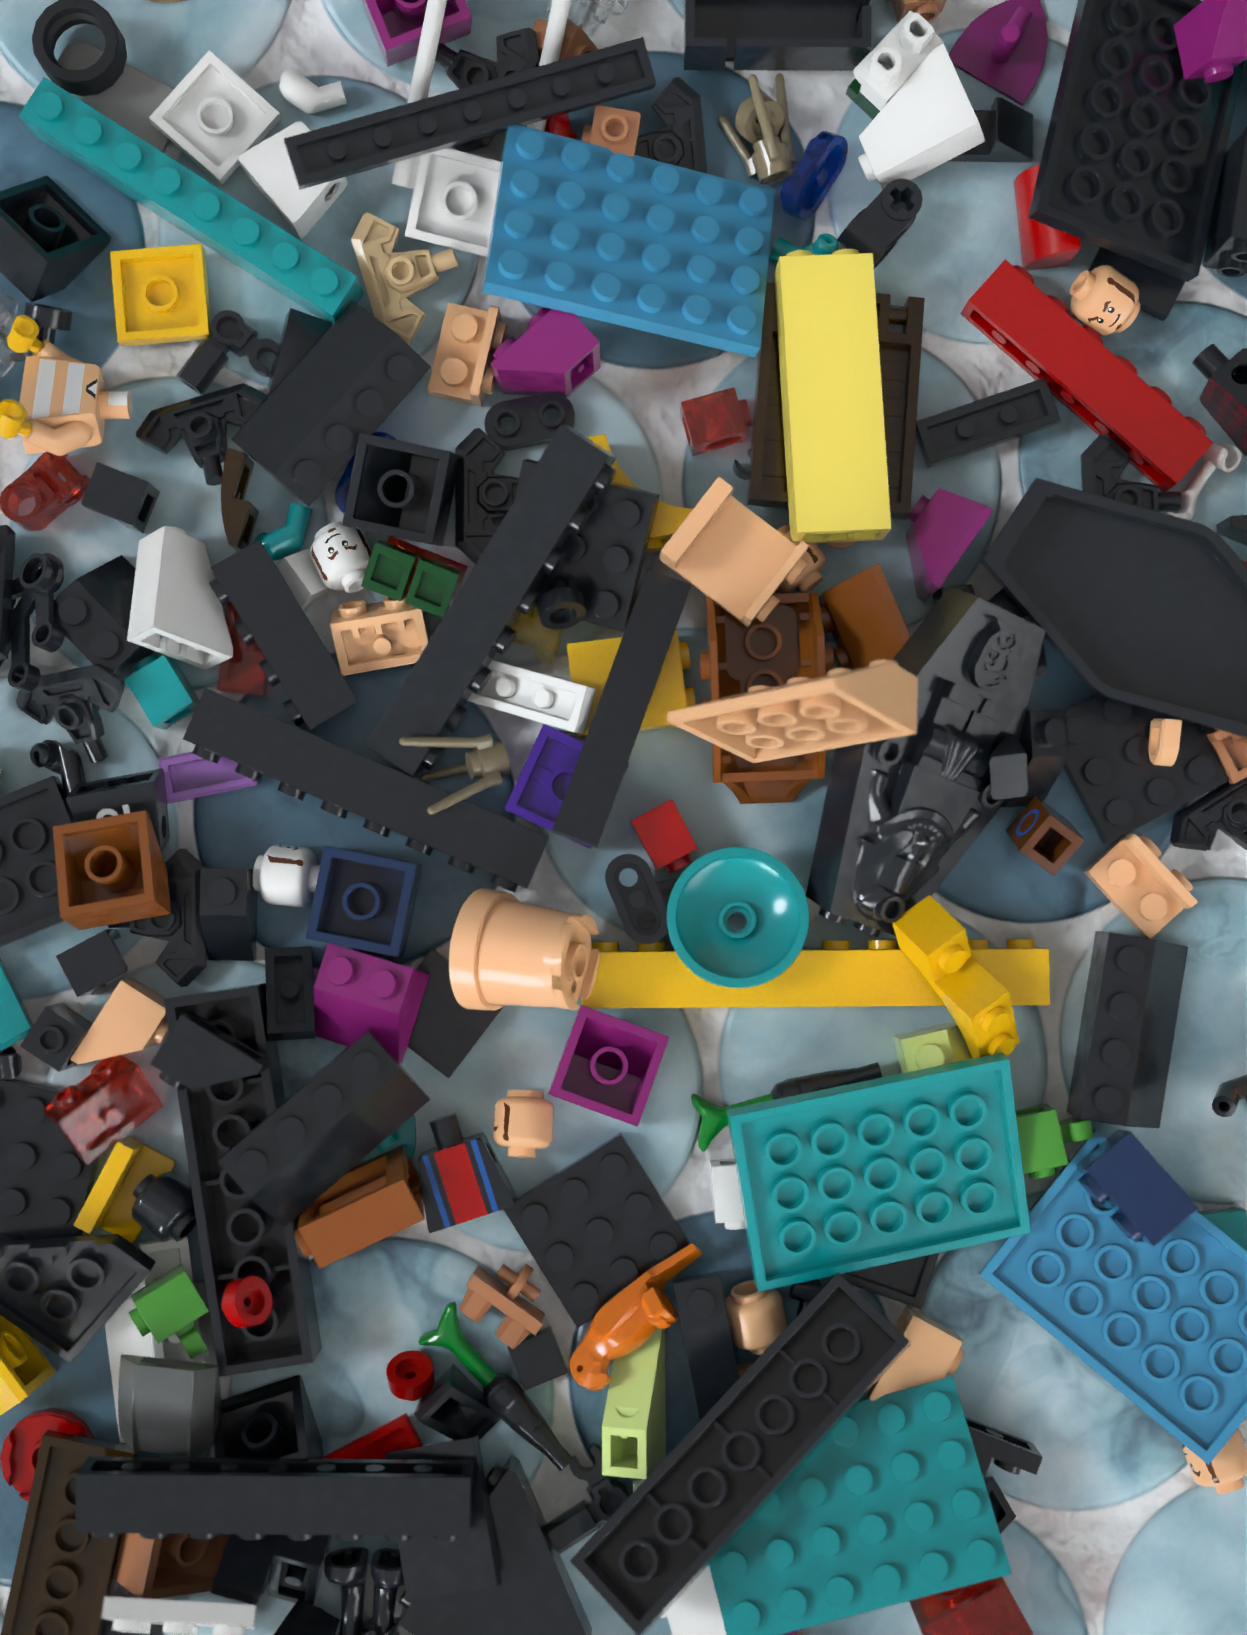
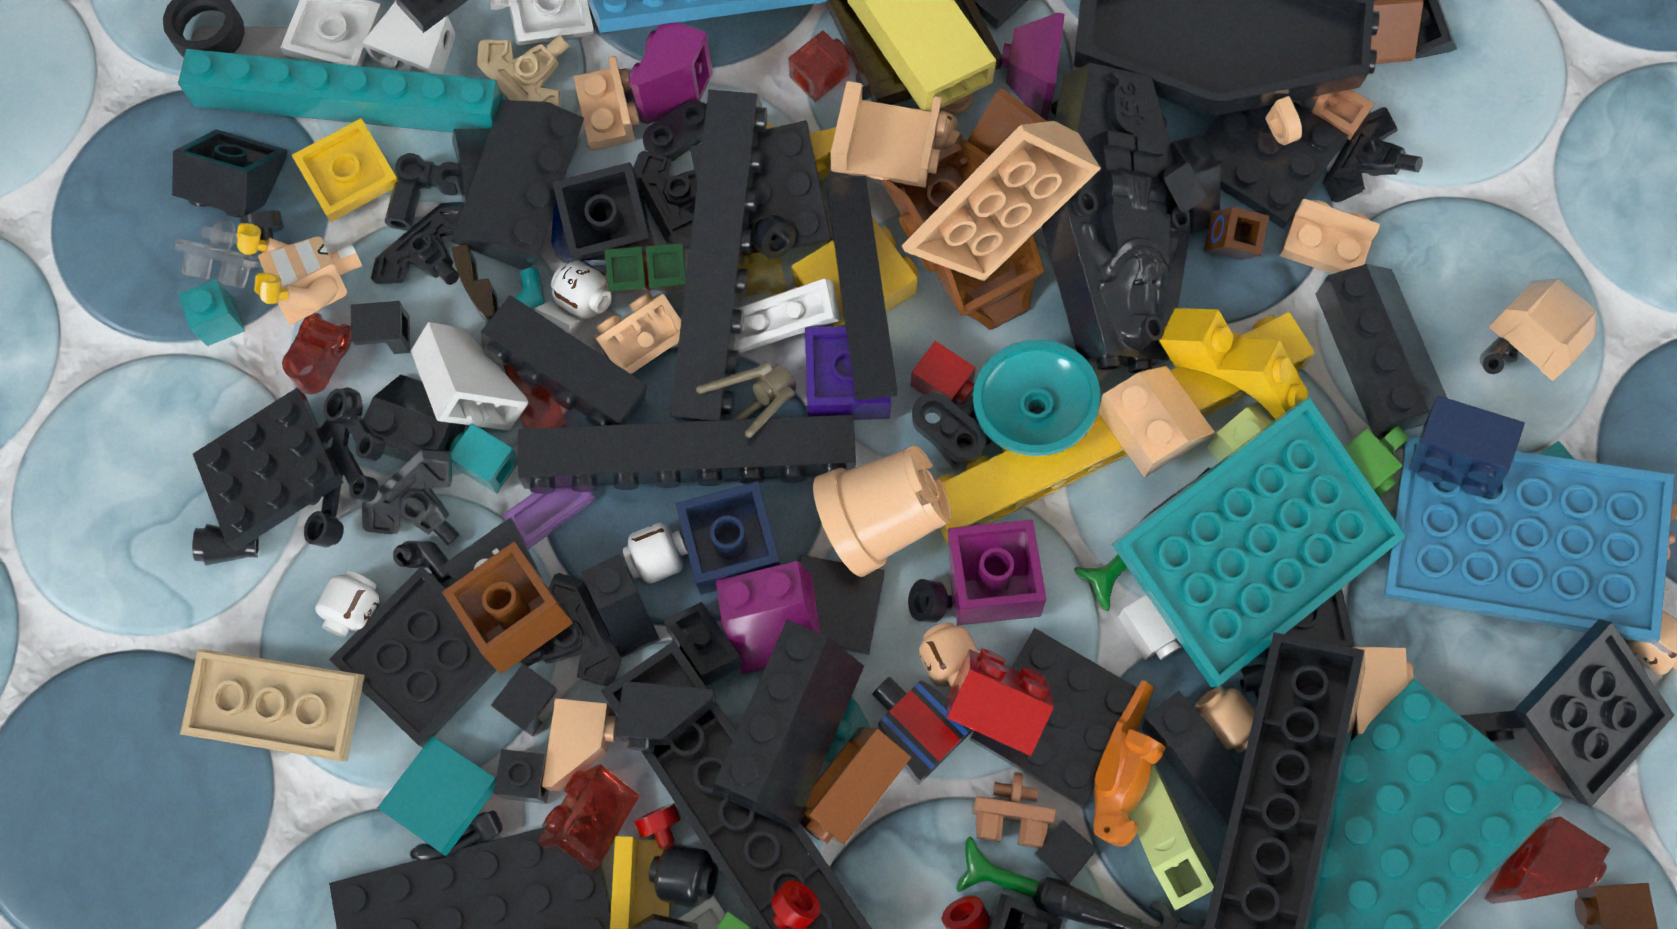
camera: 25 degrees left, 15 degrees down
(166, 1143) = (658, 824): none -> red tile
(531, 1058) = (929, 600): none -> black tile
(536, 1208) = (1000, 700): none -> red brick
(846, 999) = (1153, 419): none -> light nougat slope
(1107, 1492) = (1594, 712): none -> black plate

